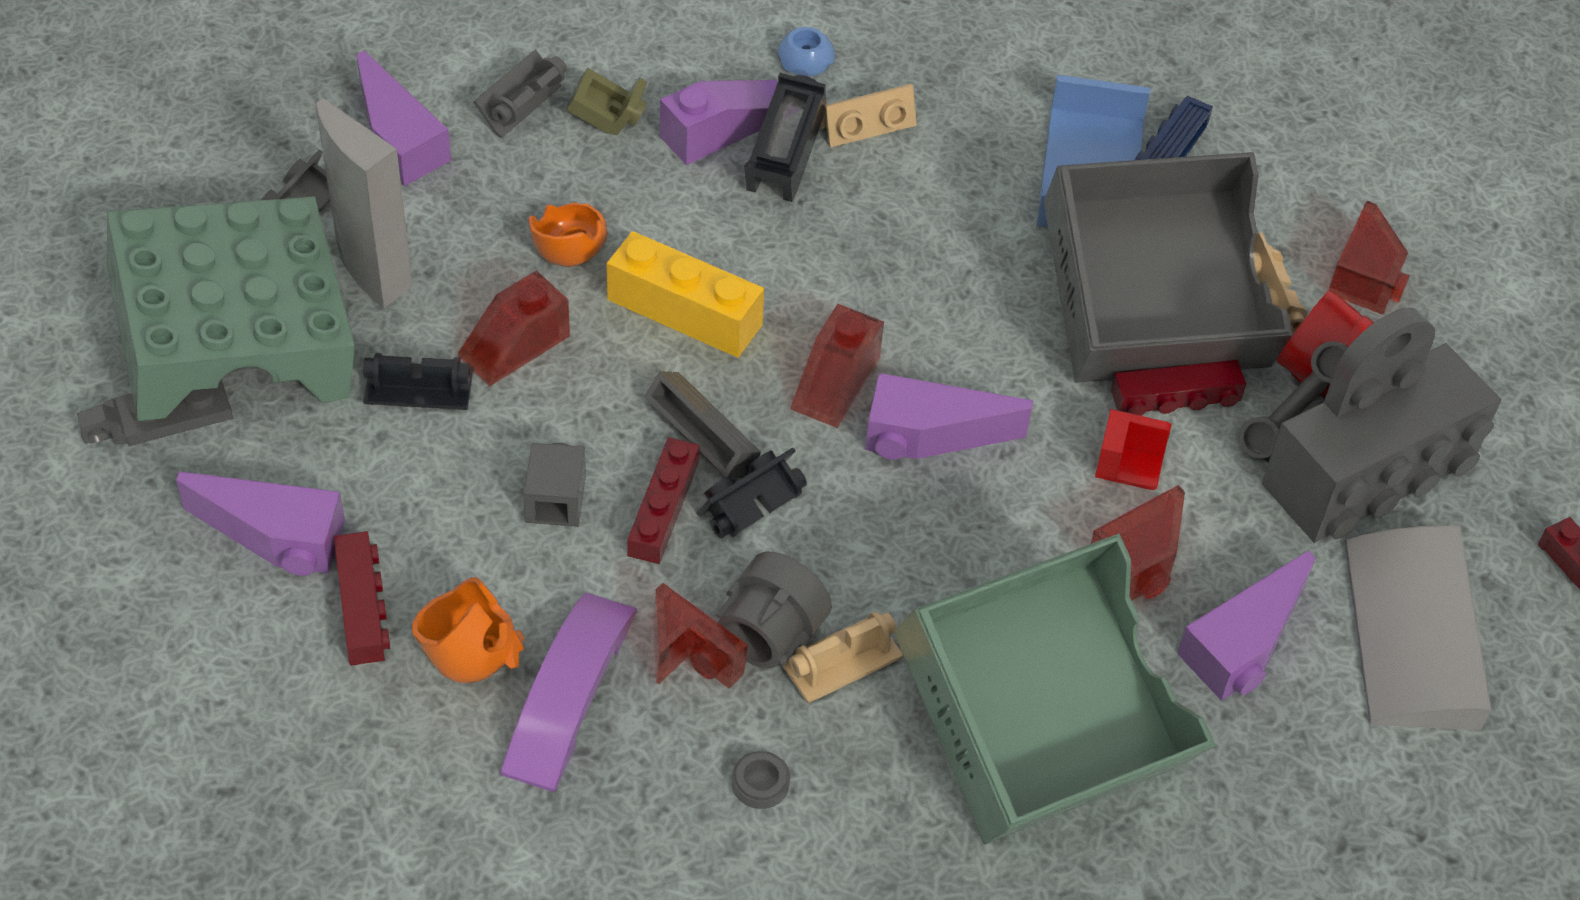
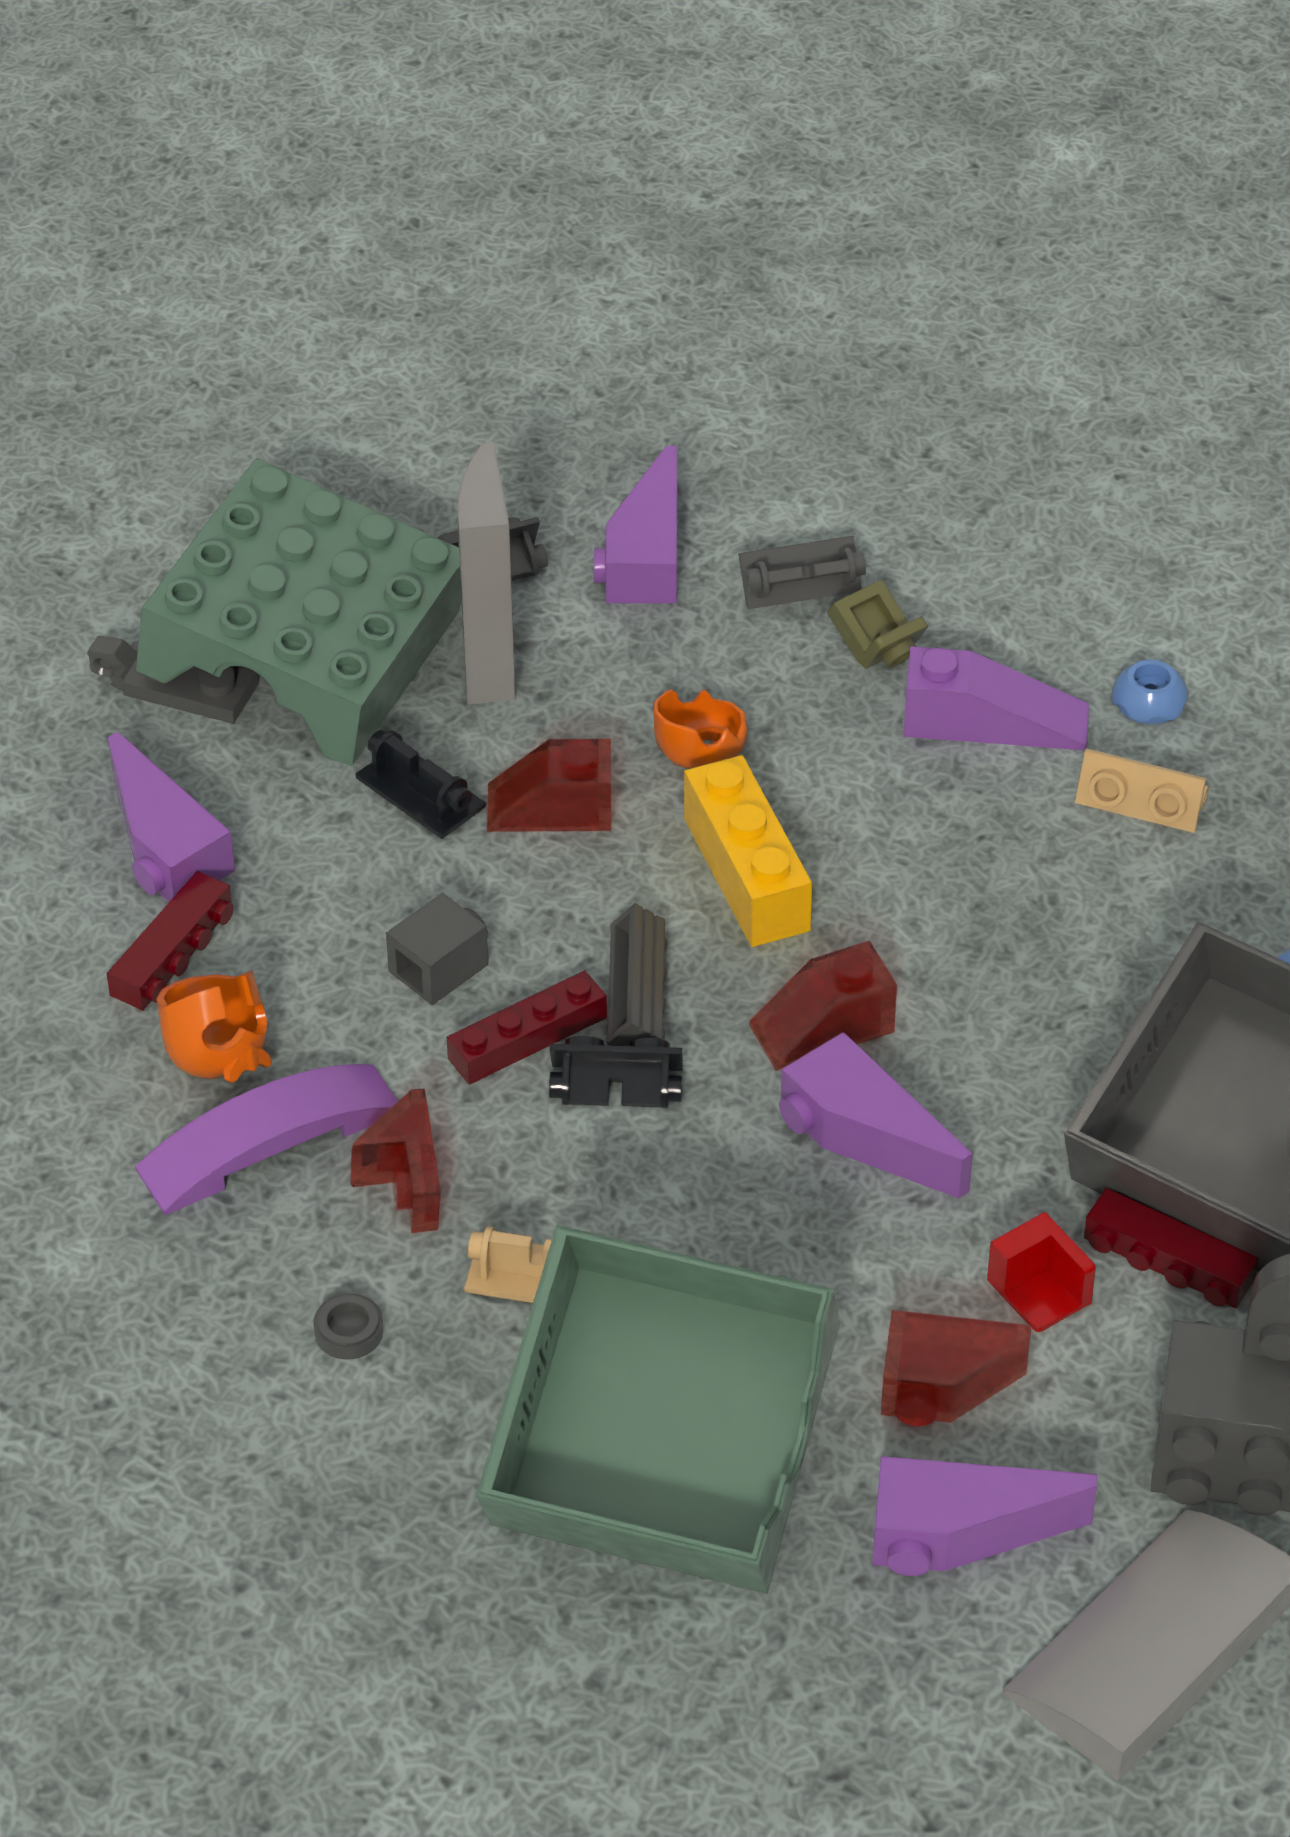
camera: 45 degrees right, 5 degrees down
(775, 608) = (500, 1179): dark grey piece -> none
(787, 134) = (1015, 759): black window -> none

